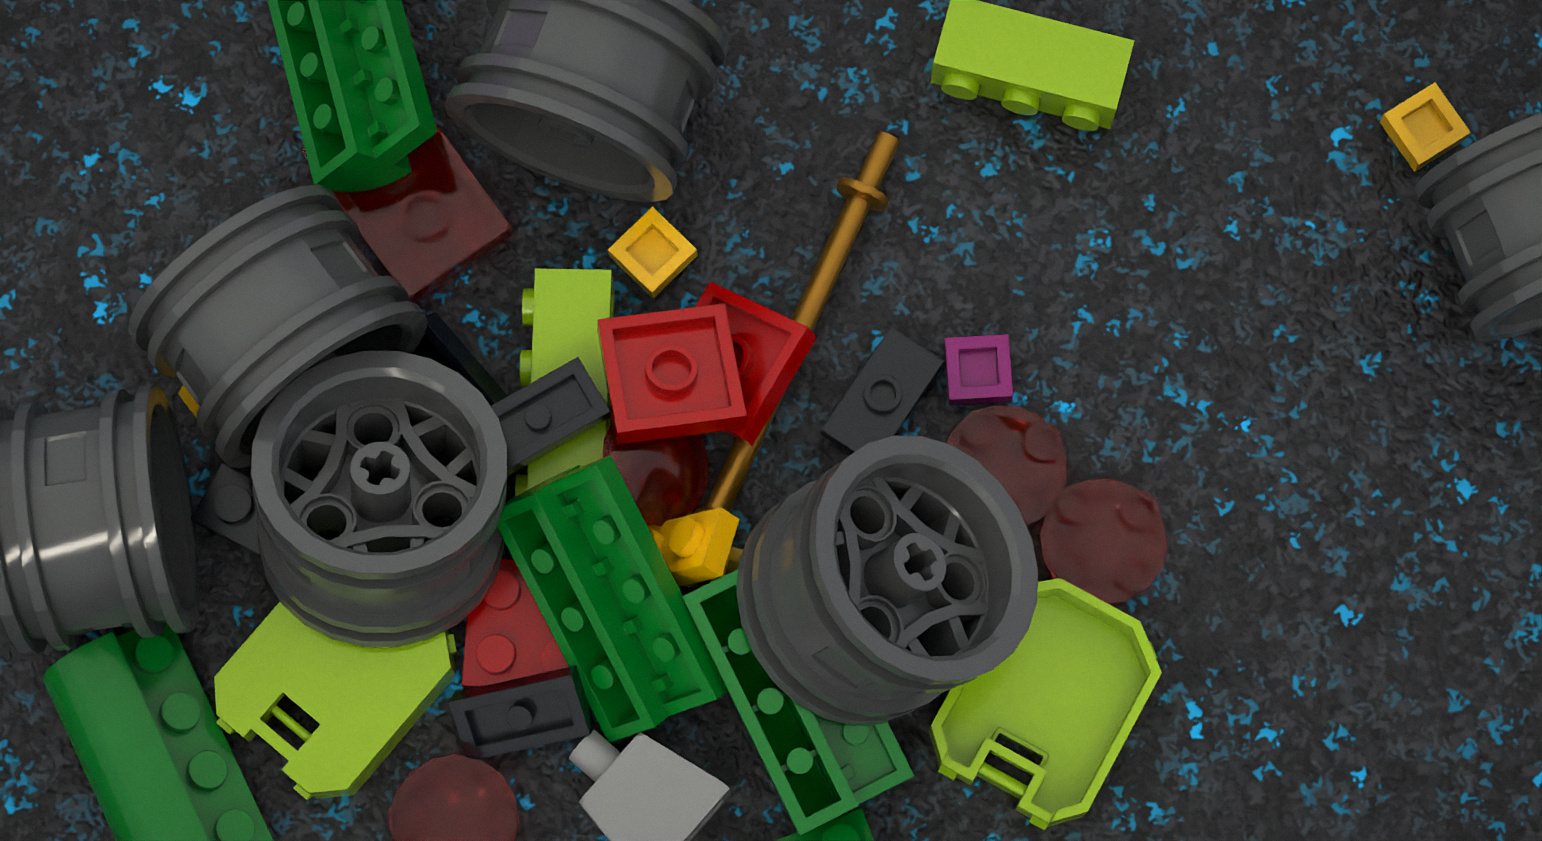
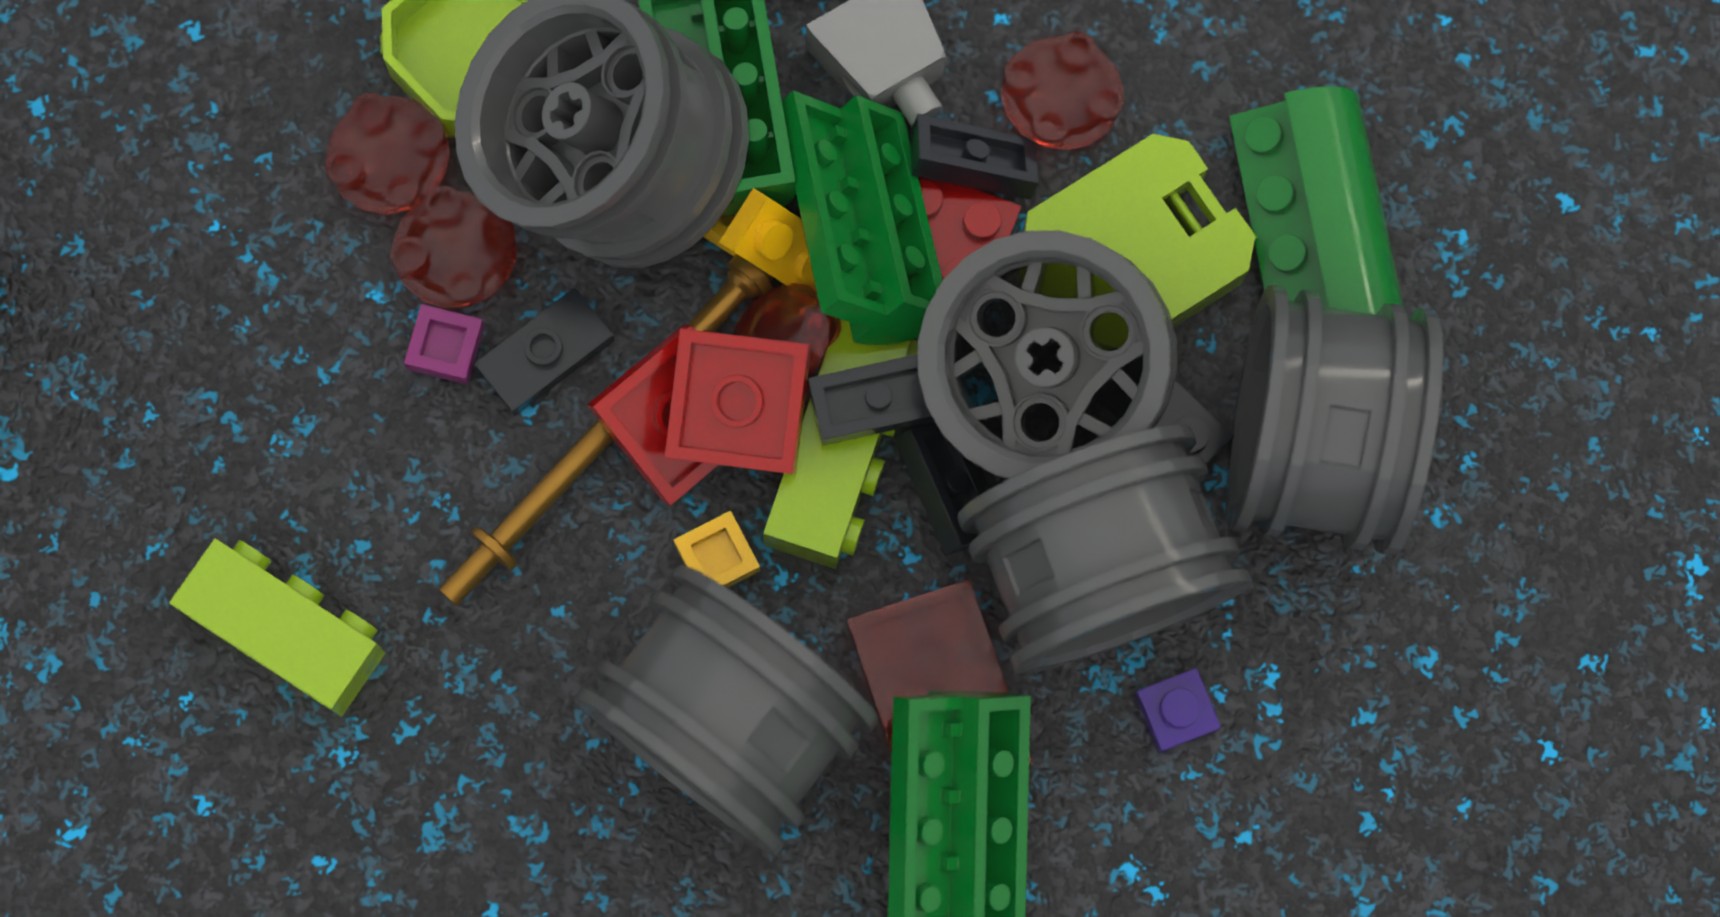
camera: 170 degrees left, 0 degrees up
(171, 237) = (1177, 710): none -> dark purple plate

